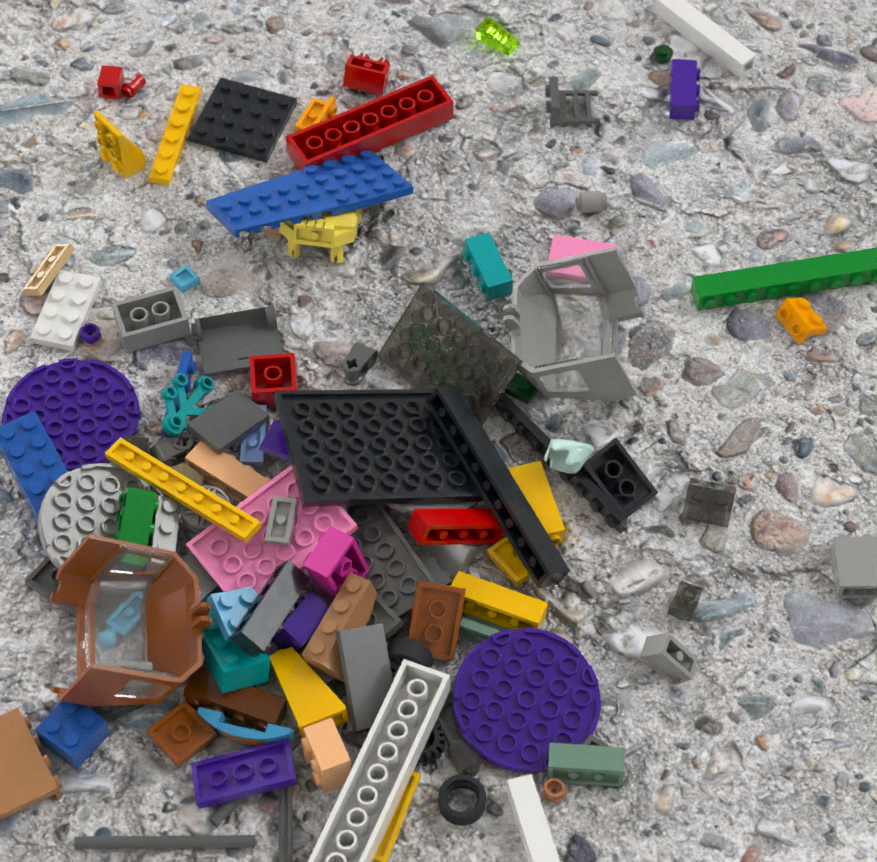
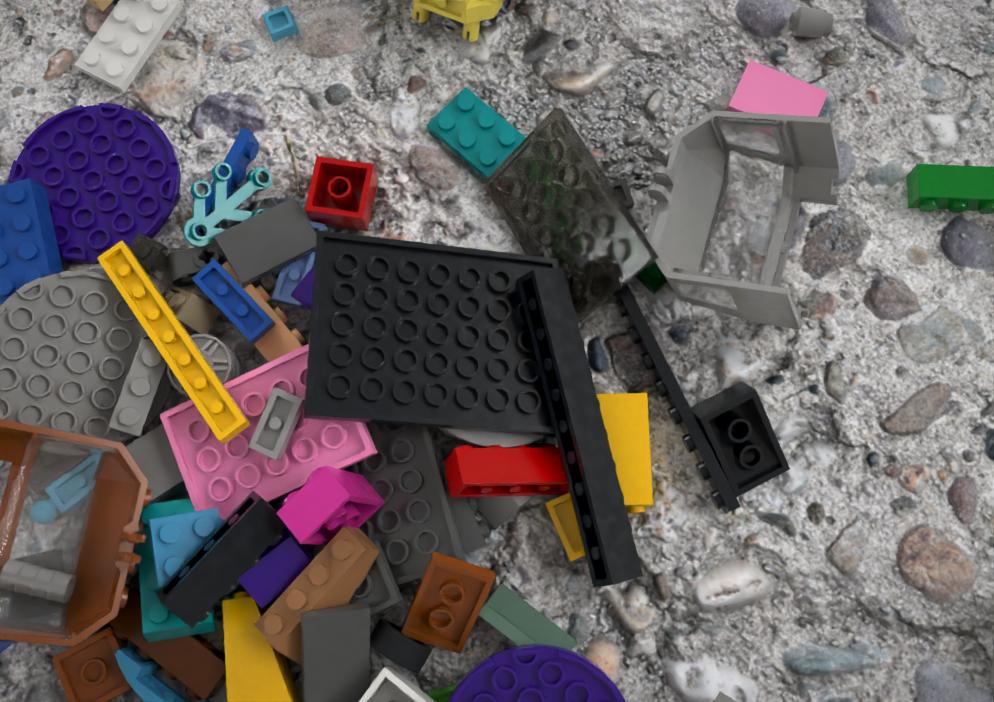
camera: 20 degrees right, 20 degrees up
(90, 329) = (144, 69): dark purple plate -> none
(136, 516) = (100, 374): green wedge -> none
(151, 319) = (217, 73): light grey brick -> none
(216, 462) = (233, 301): none -> blue plate
(233, 337) = (318, 122): dark grey door -> none
(358, 363) = (458, 186): dark grey piece -> none
(360, 322) = (475, 132): none -> teal plate
(487, 266) = (653, 87): teal brick -> none
(500, 604) = (538, 589): yellow brick -> none
(568, 455) = (683, 402): light aqua hair -> none
(685, 601) = (783, 649): clear smoke bracket -> none
(709, 502) = (856, 499): clear smoke slope -> none

